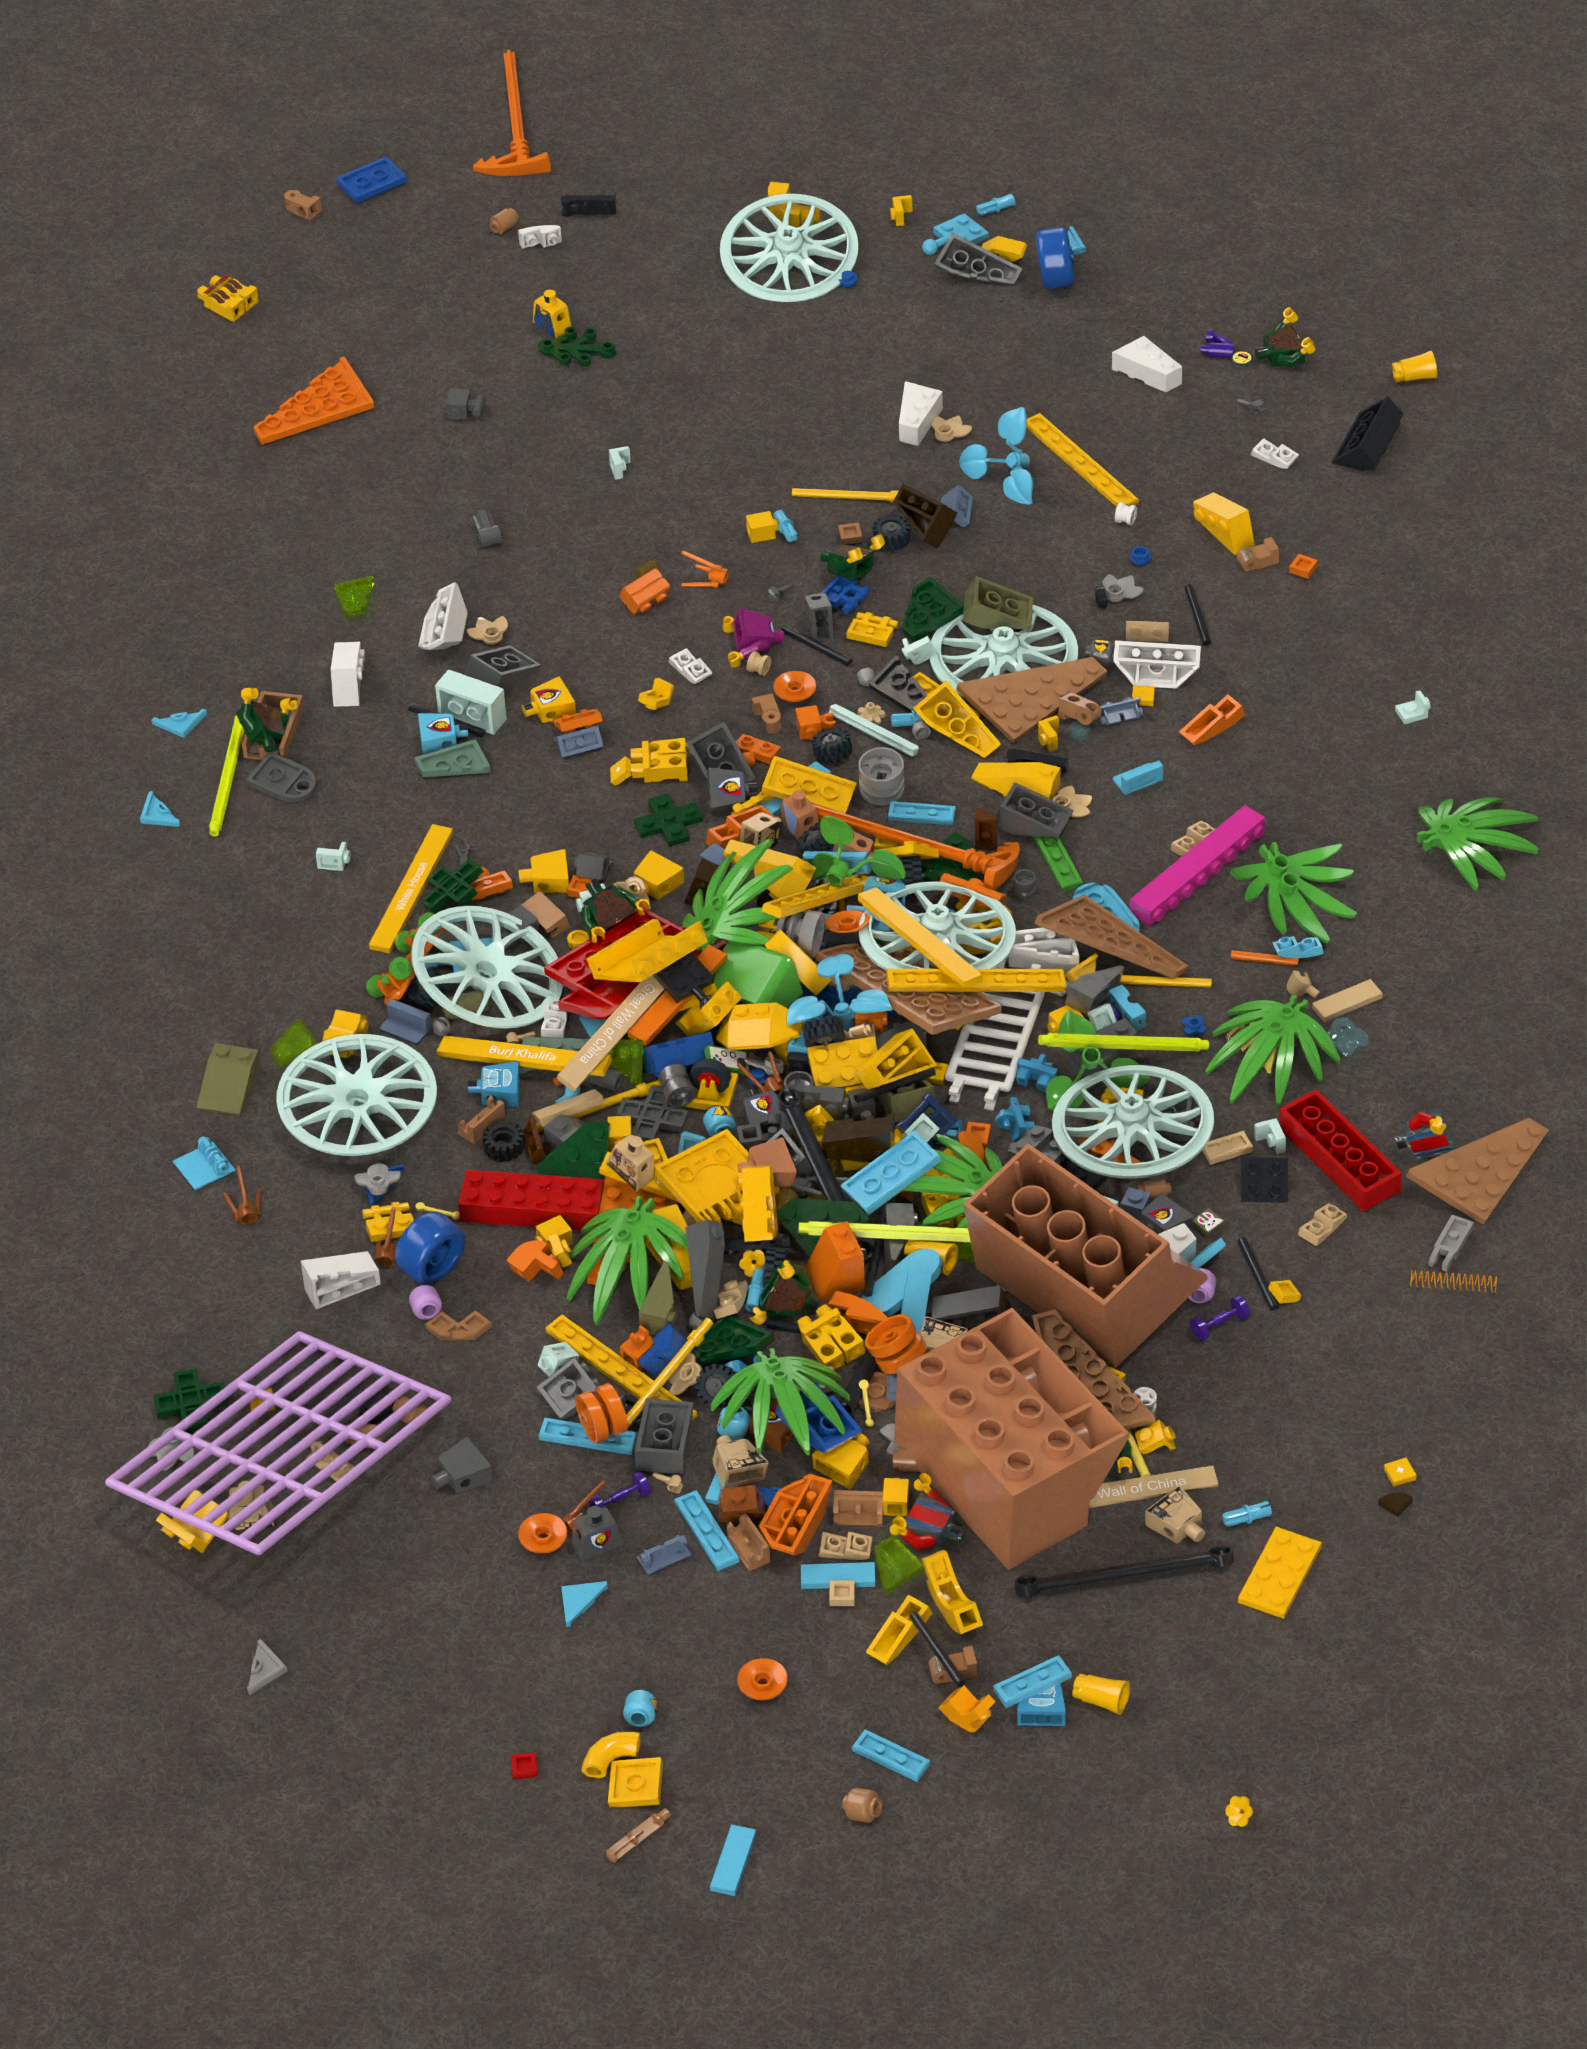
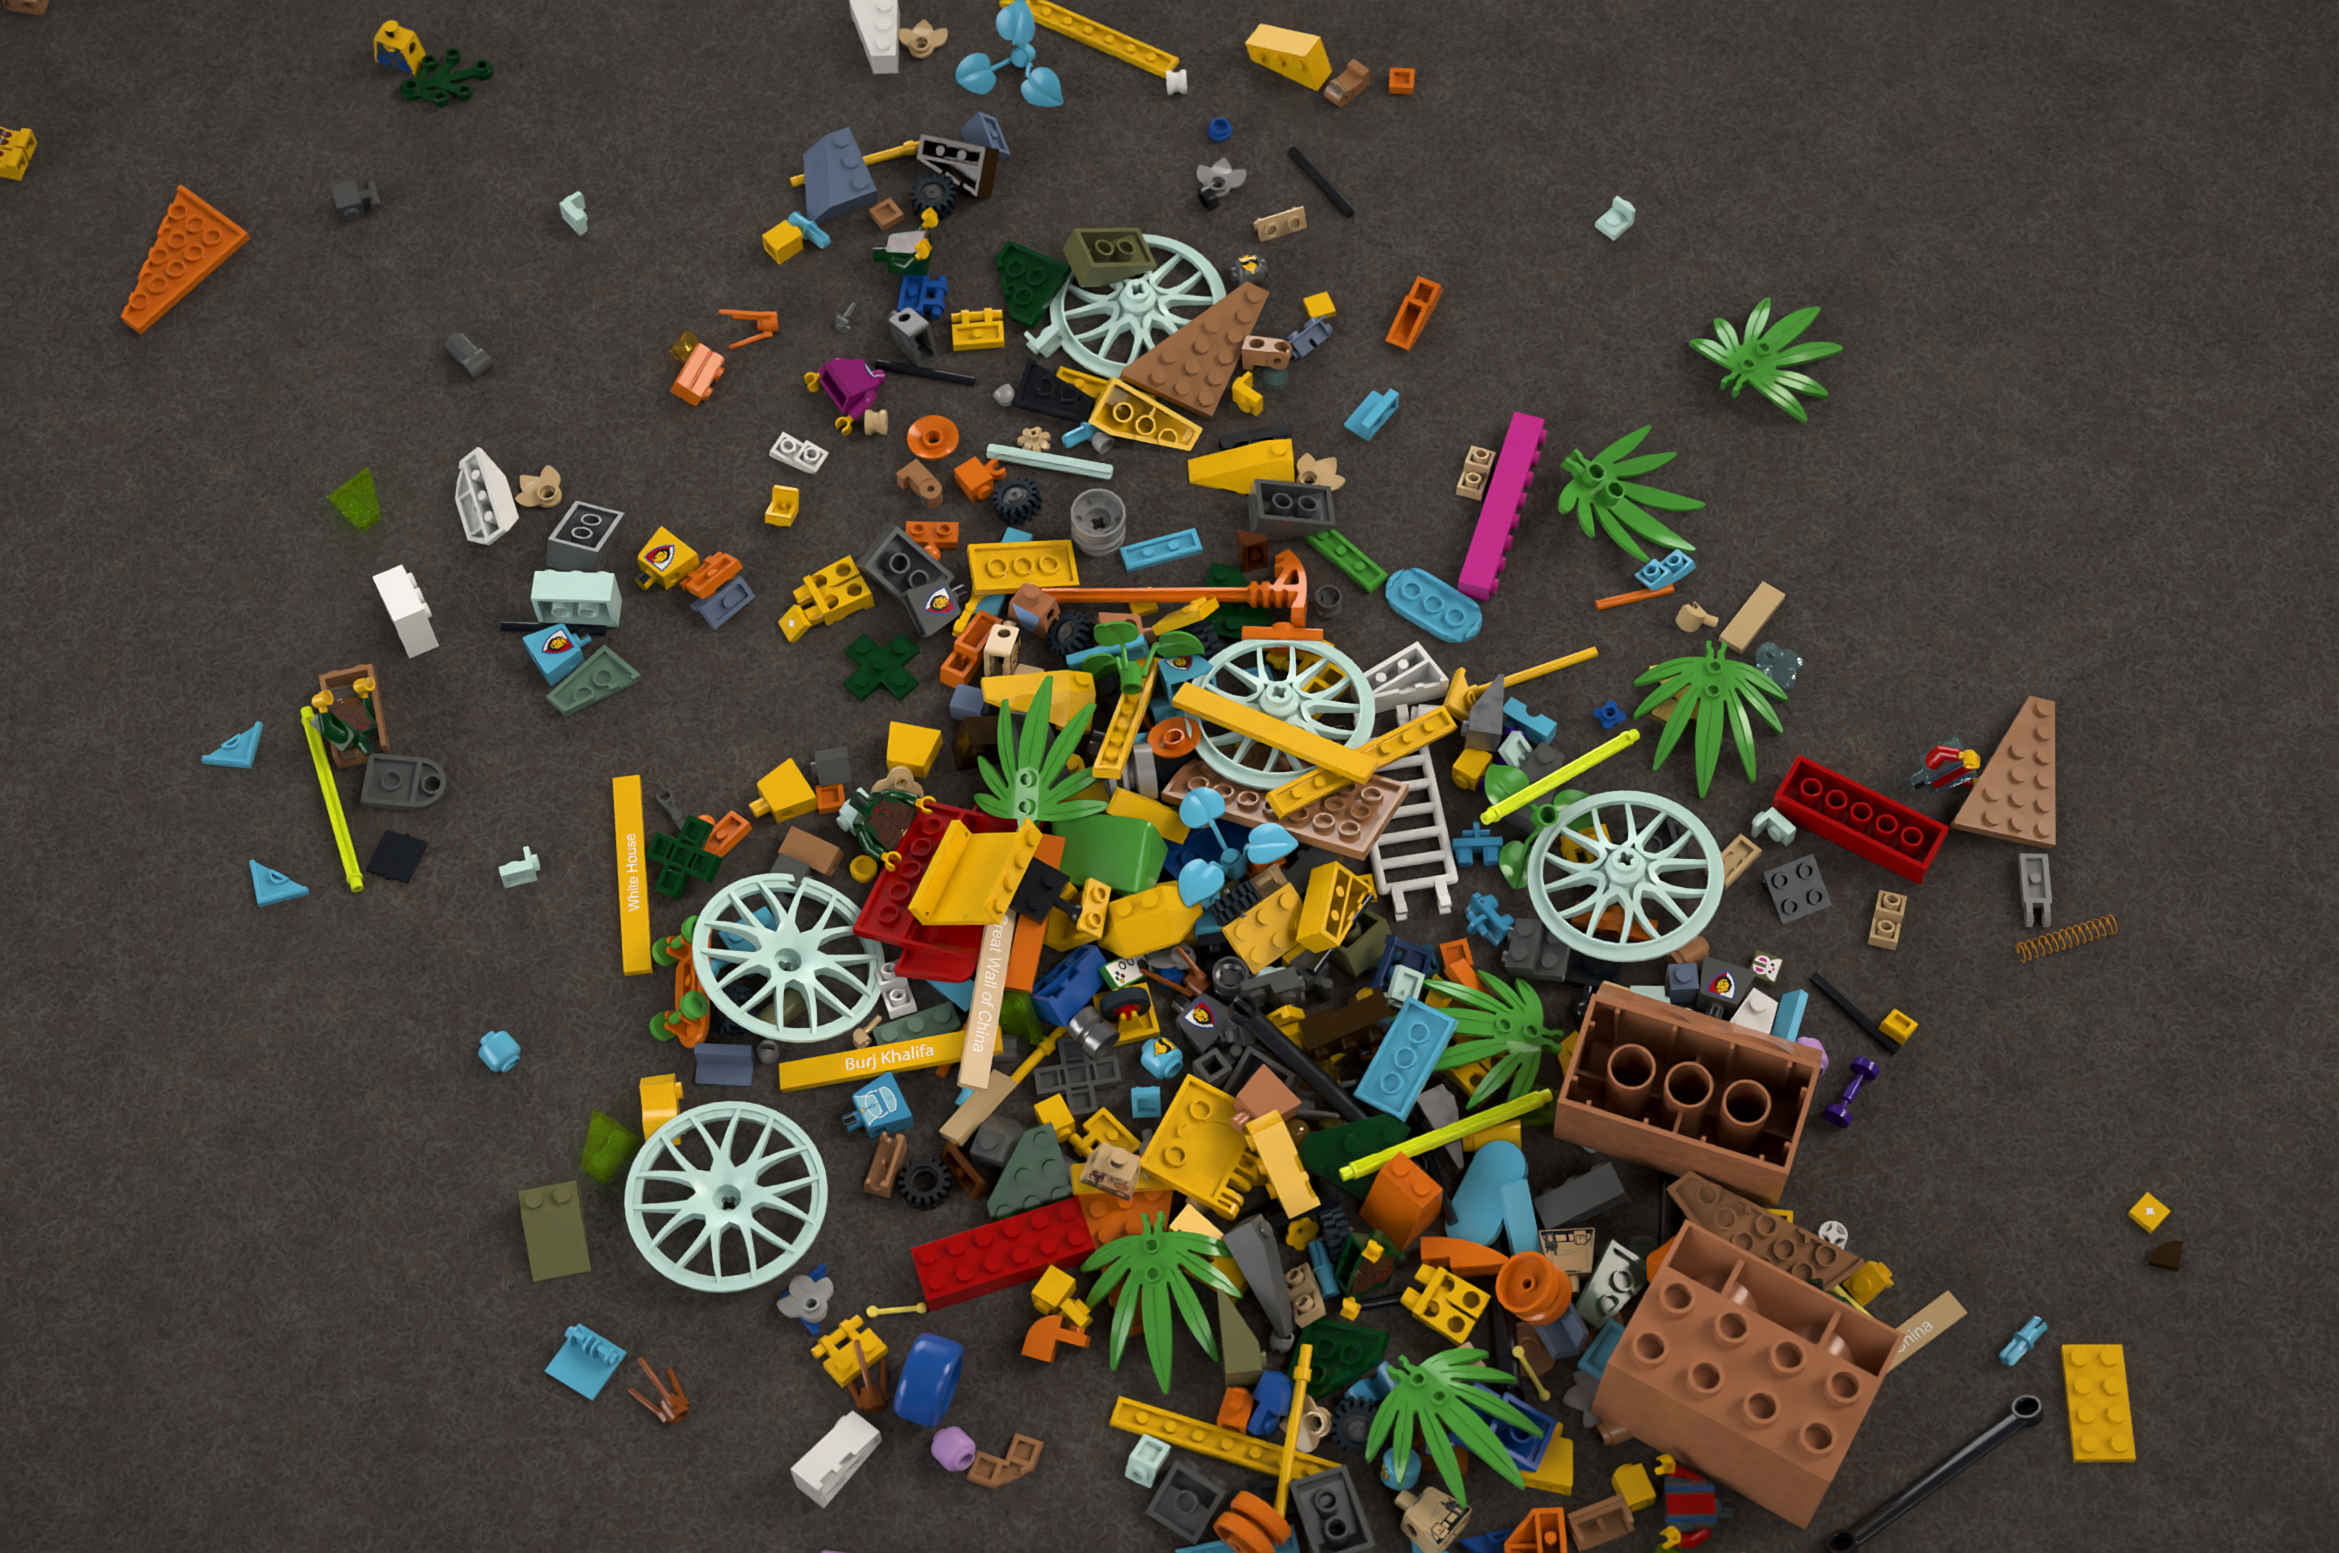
camera: 25 degrees left, 15 degrees up
(253, 823) = (397, 856): none -> black piece
(253, 961) = (499, 1051): none -> medium azure head
(825, 496) = (836, 178): none -> sand blue wedge
(1097, 927) = (1451, 636): medium nougat wing -> none
(1156, 663) = (1318, 263): white wedge -> none
(1176, 1517) = (1953, 1380): tan torso -> none

